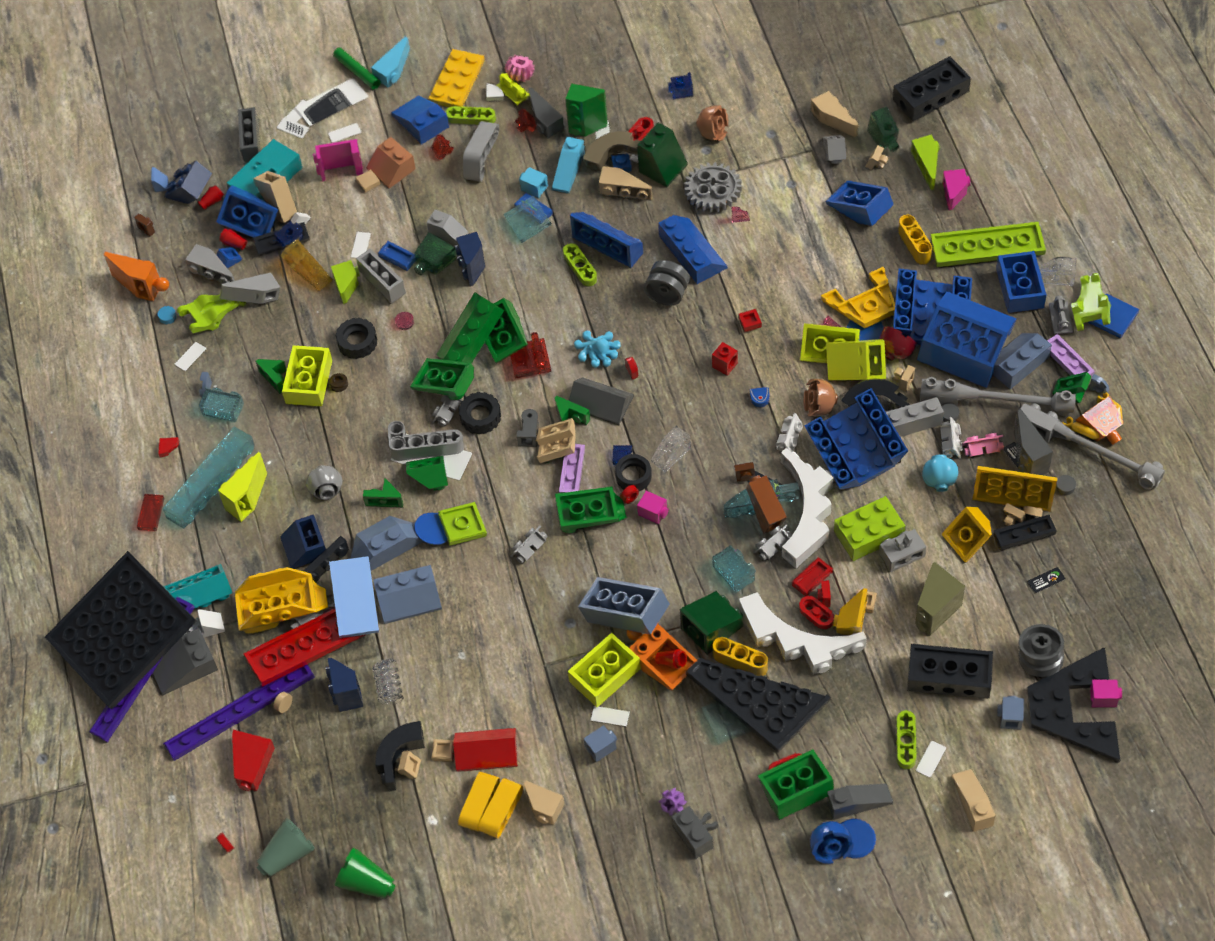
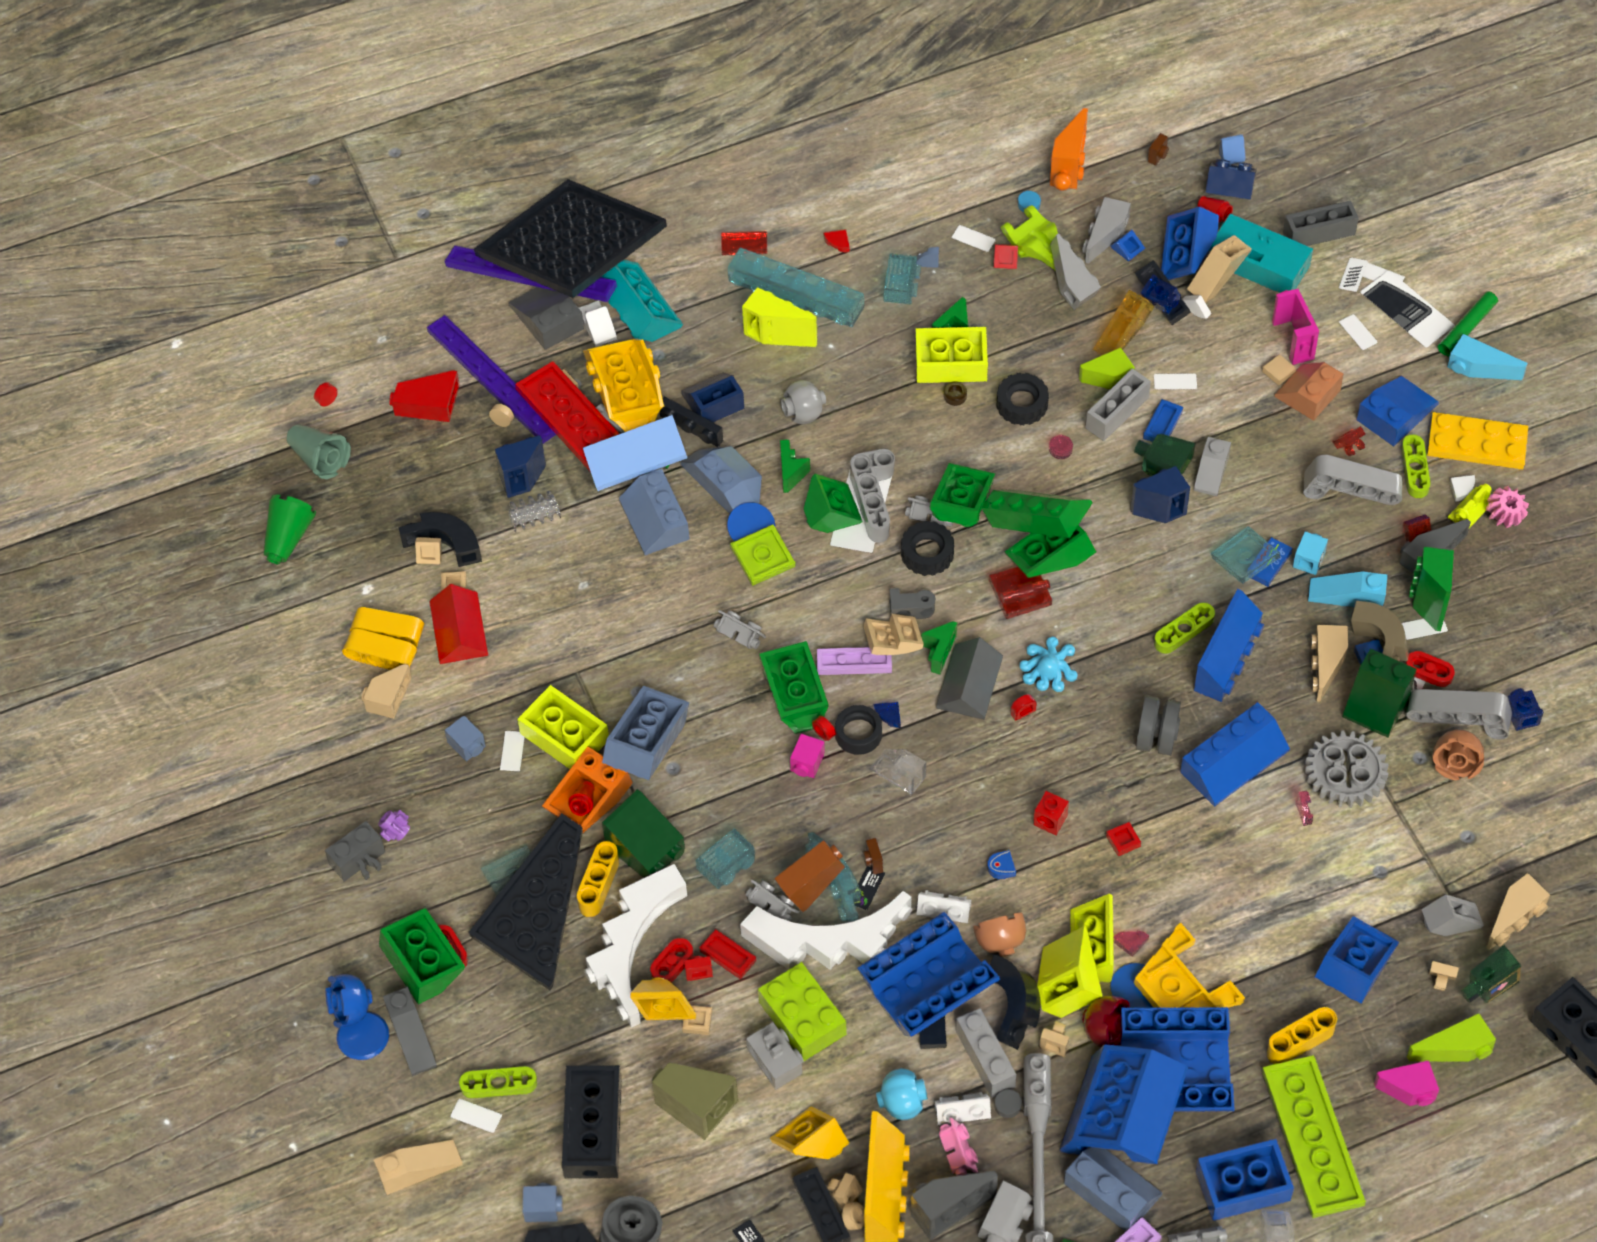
camera: 80 degrees right, 0 degrees up
(219, 333) = (1006, 256): none -> plate
(232, 239) = (1153, 242): red cone -> none
(684, 102) = (1462, 707): none -> light grey beam

